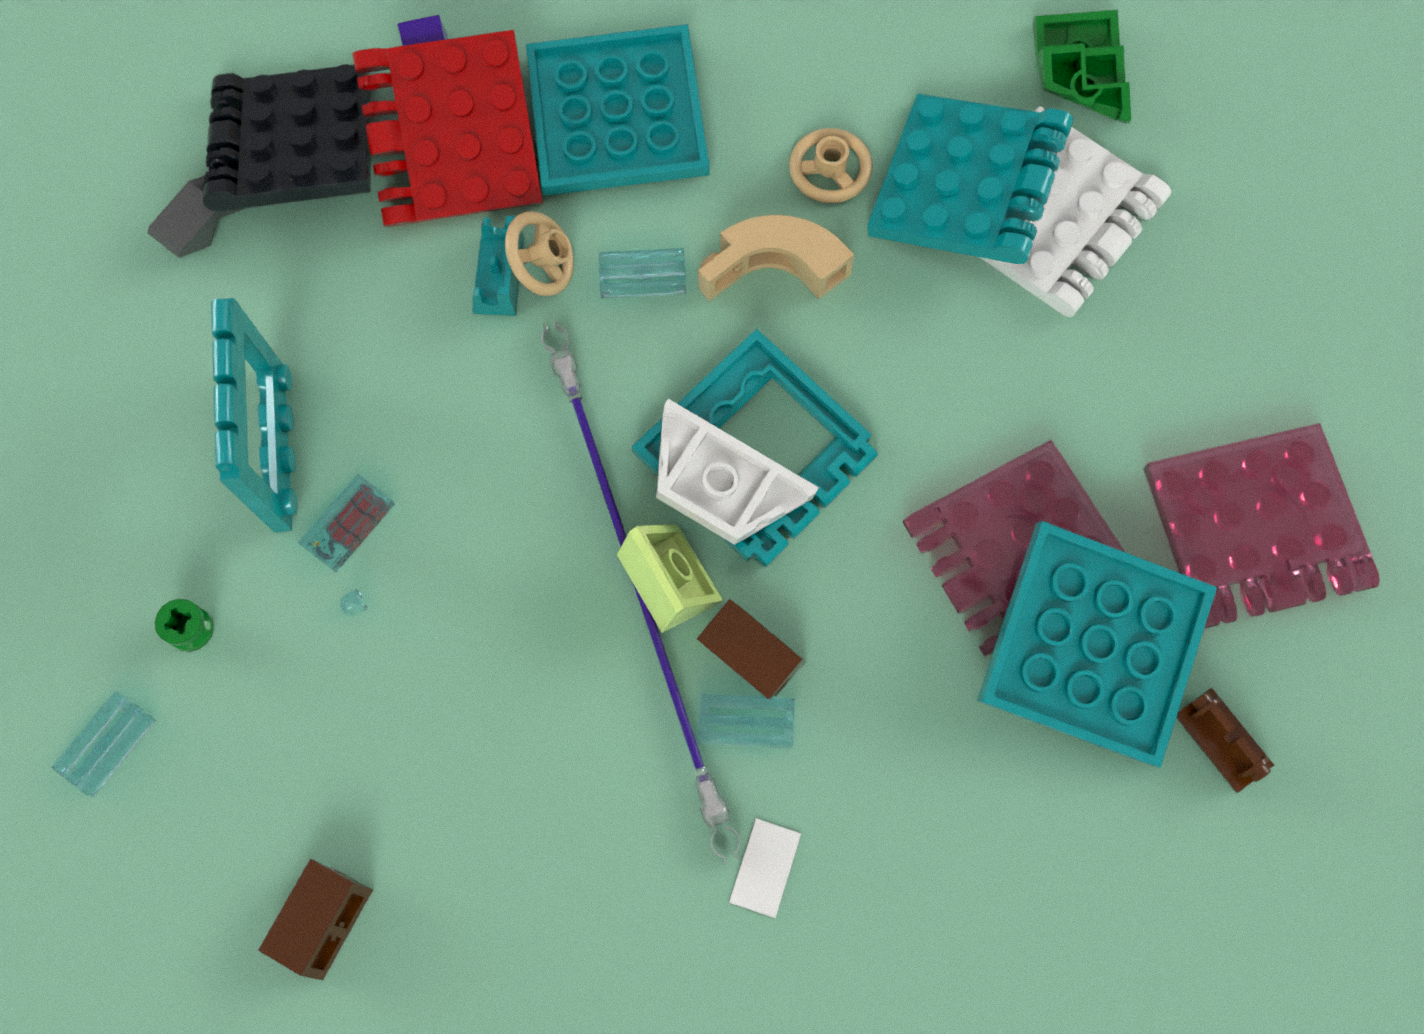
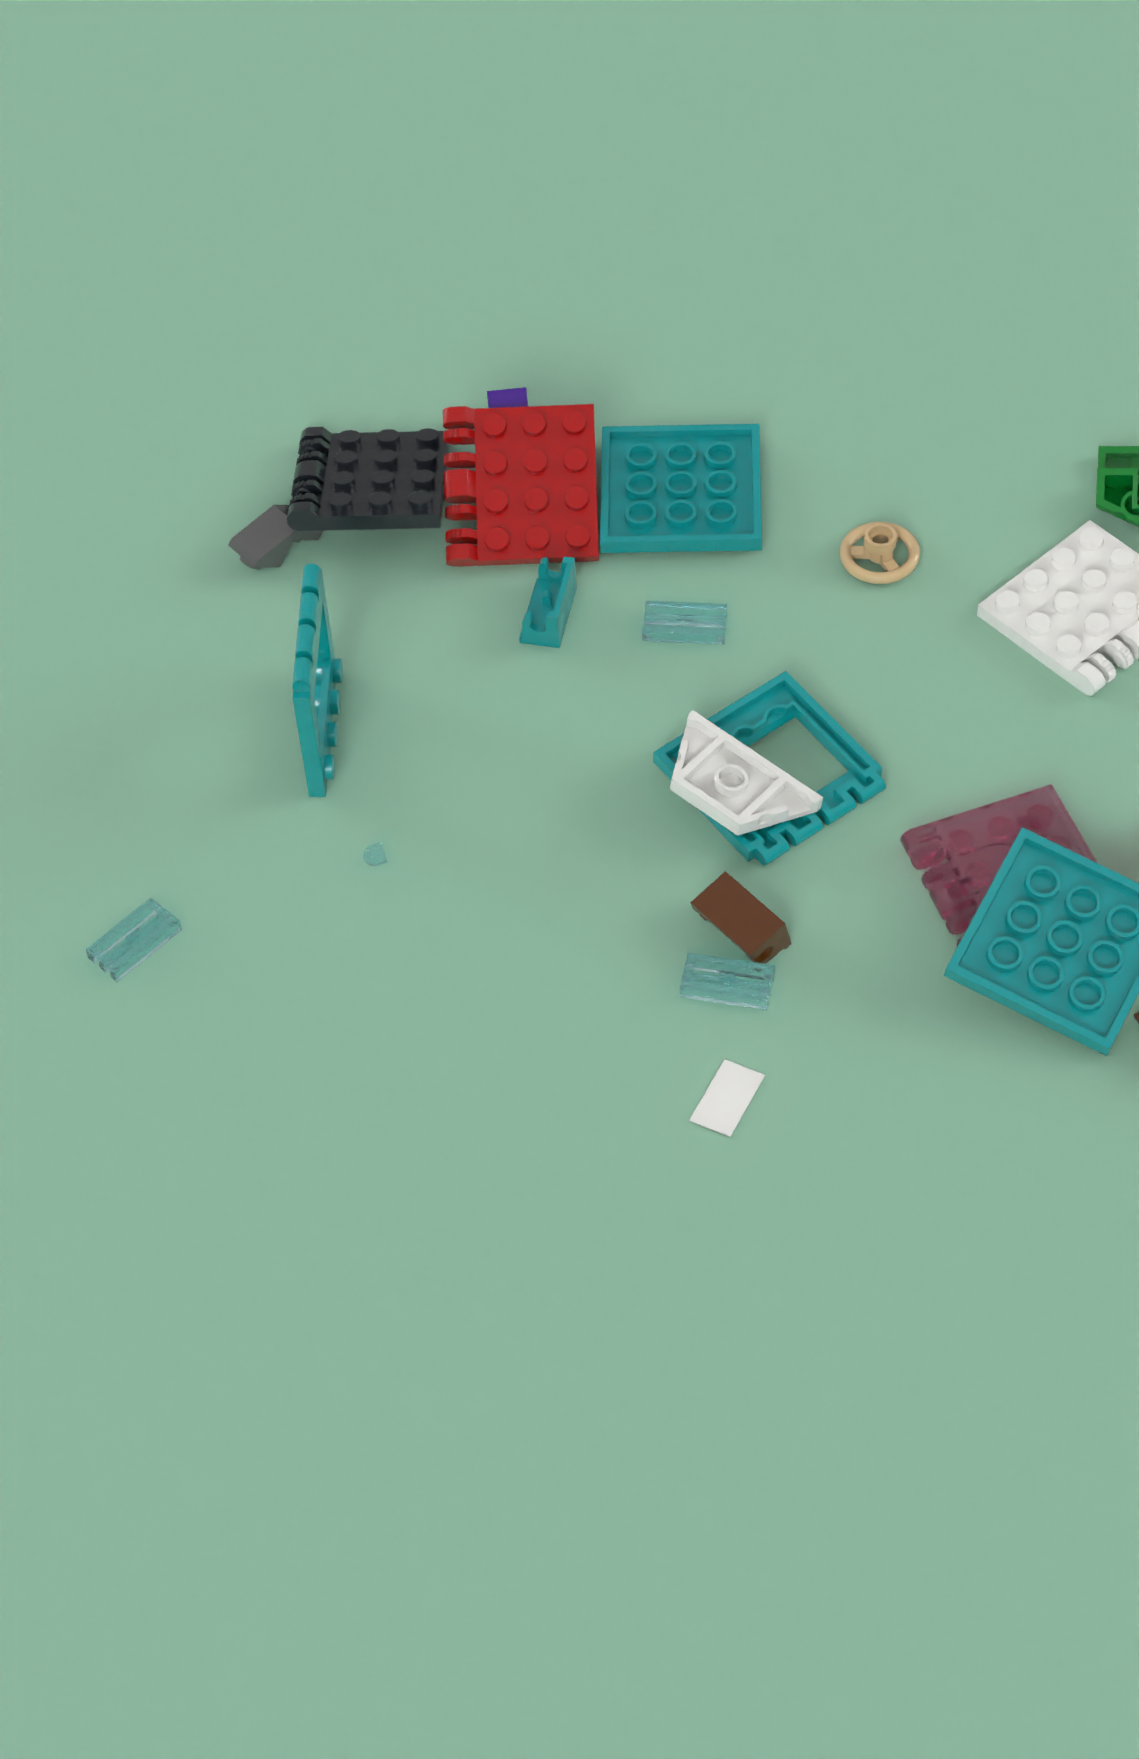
camera: 10 degrees right, 20 degrees down
(195, 628) = (214, 862): green wheel -> none
(315, 920) = (311, 1084): reddish brown hinge -> none
(346, 523) = (378, 793): clear light blue tile -> none
(547, 251) = (598, 590): tan piece -> none
(667, 574) = (668, 852): yellowish green slope -> none
(712, 806) = (685, 1040): piece -> none
(777, 243) = (818, 608): tan arch -> none
(966, 173) = (1008, 568): teal hinge -> none

